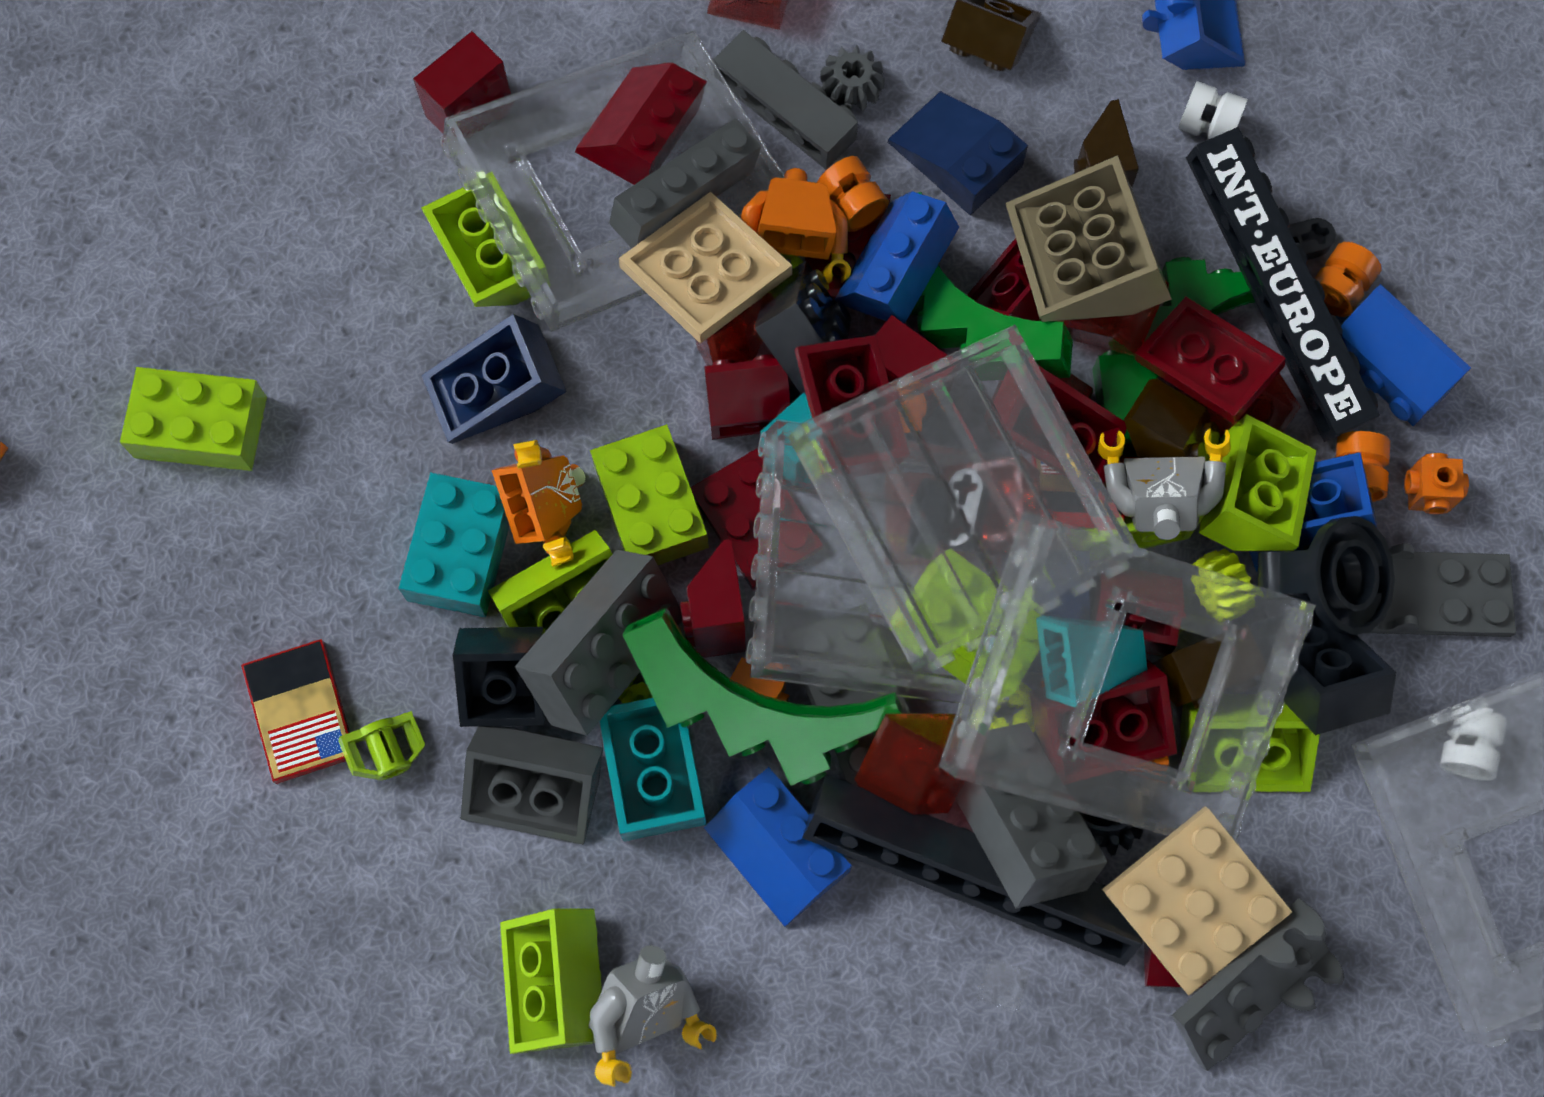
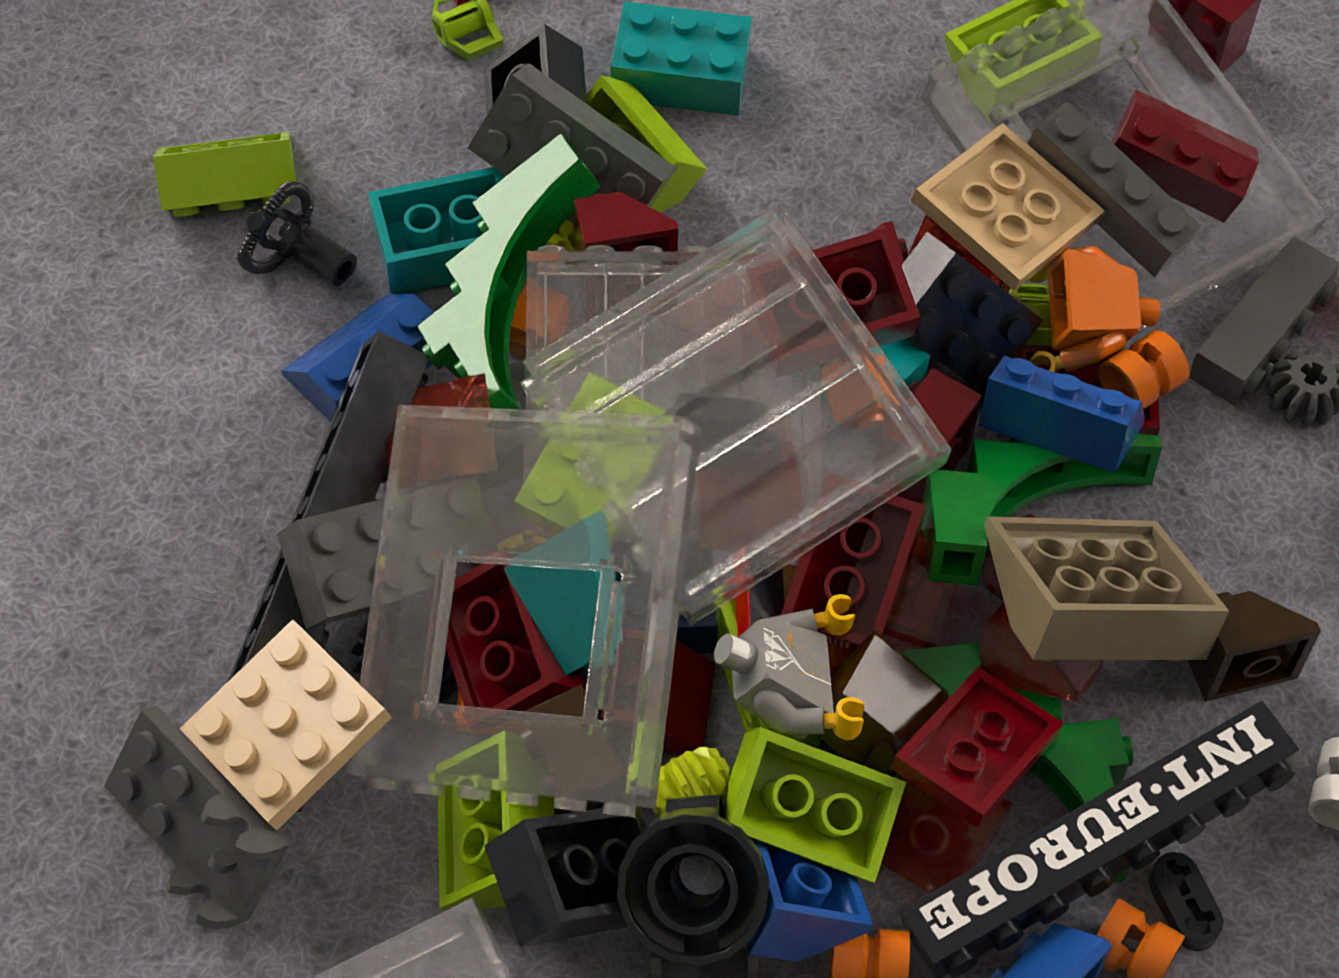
camera: 85 degrees right, 15 degrees down
(494, 379) = (870, 80): dark blue slope -> none
(530, 783) = (431, 127): dark grey slope -> none
(540, 498) = (736, 110): orange torso -> none
(640, 1004) = (193, 222): light grey torso -> none
(649, 900) = (297, 239): none -> black piece
(650, 496) = (733, 197): lime brick -> none
(960, 150) = (1234, 506): dark blue slope -> none

